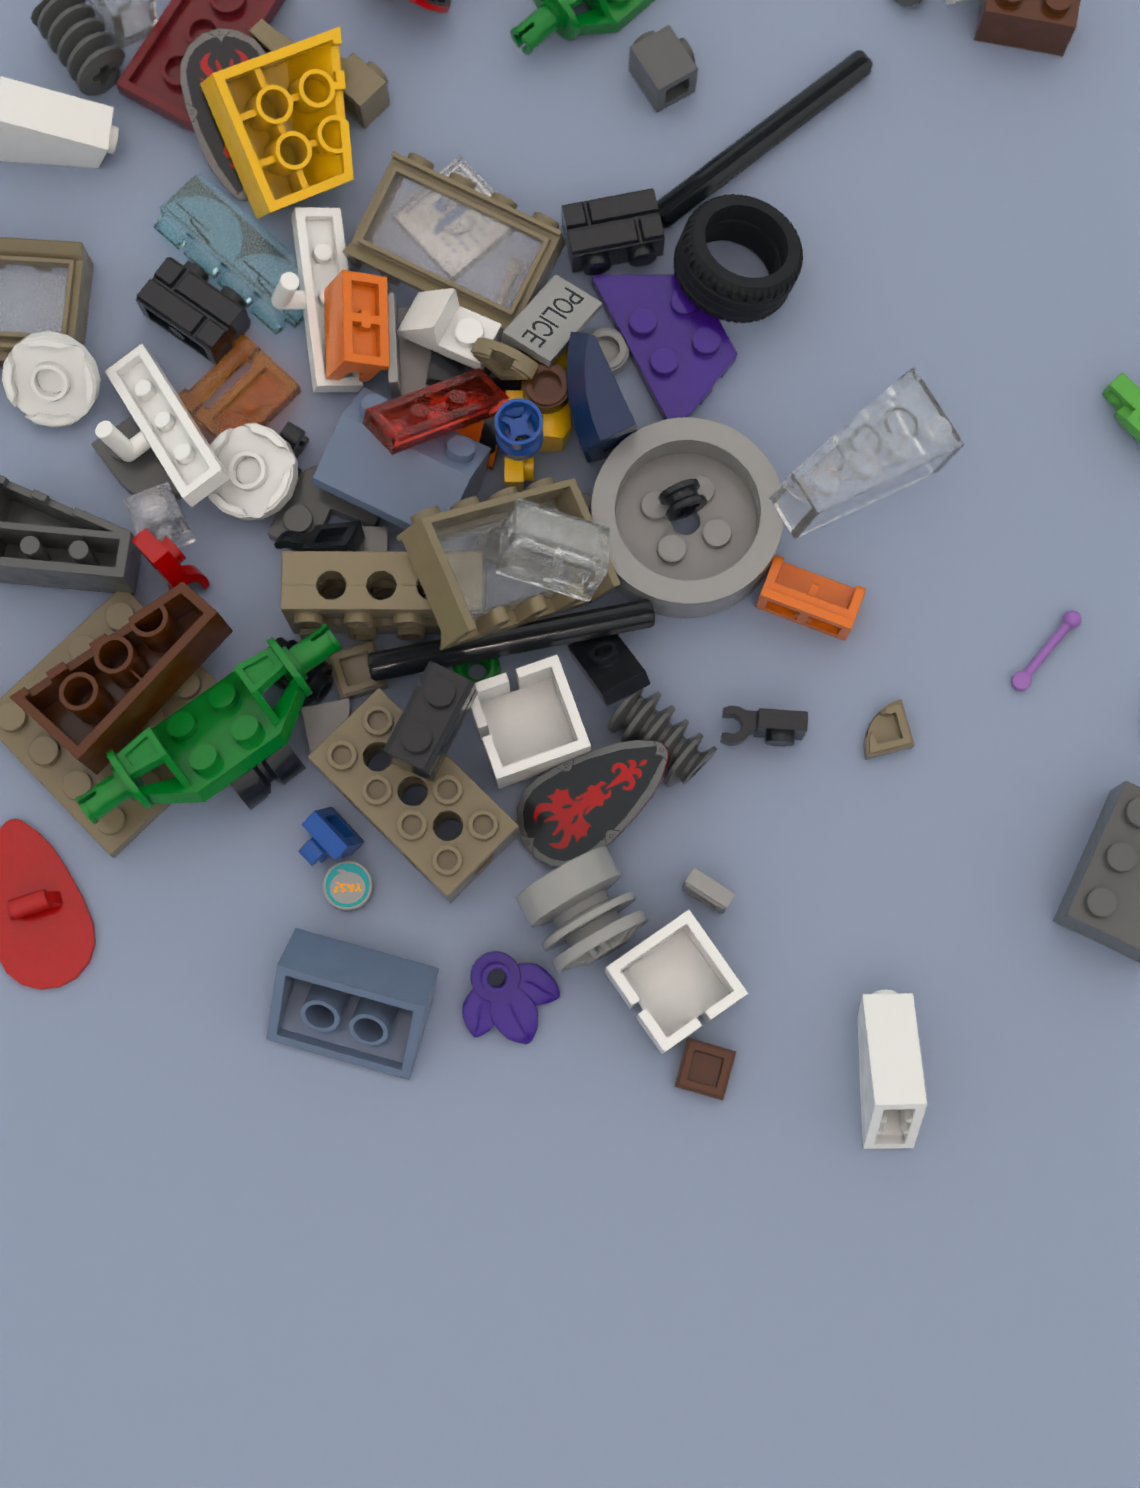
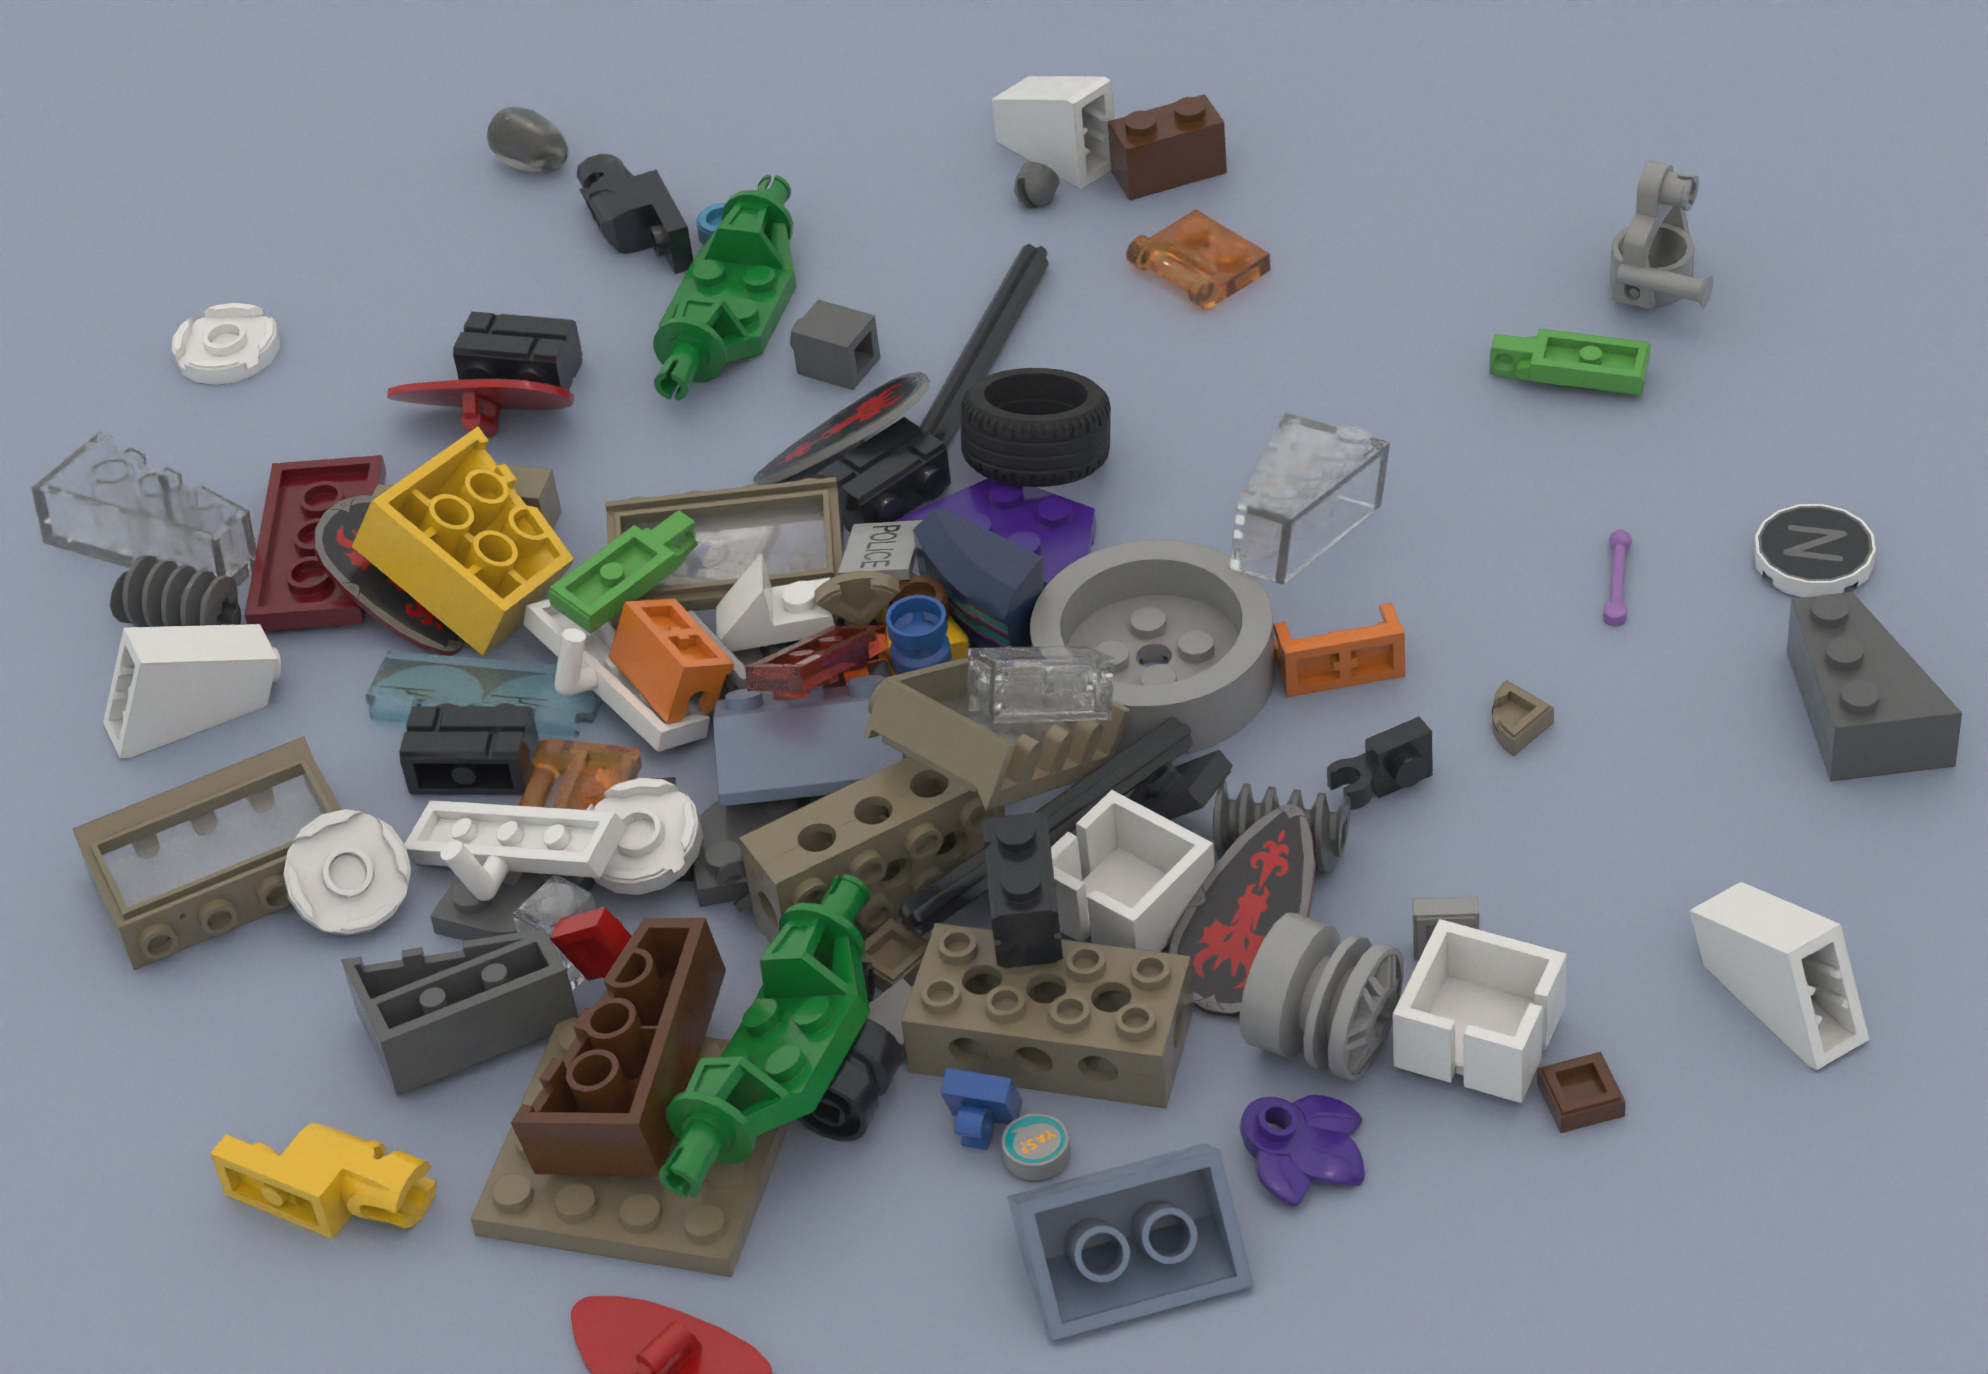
camera: 25 degrees left, 35 degrees down
(364, 232) = (623, 571): none -> bright green hinge
(615, 168) = (847, 427): none -> shield
(682, 499) = (1138, 622): black bush -> none
(990, 138) = (1200, 258): none -> clear orange plate

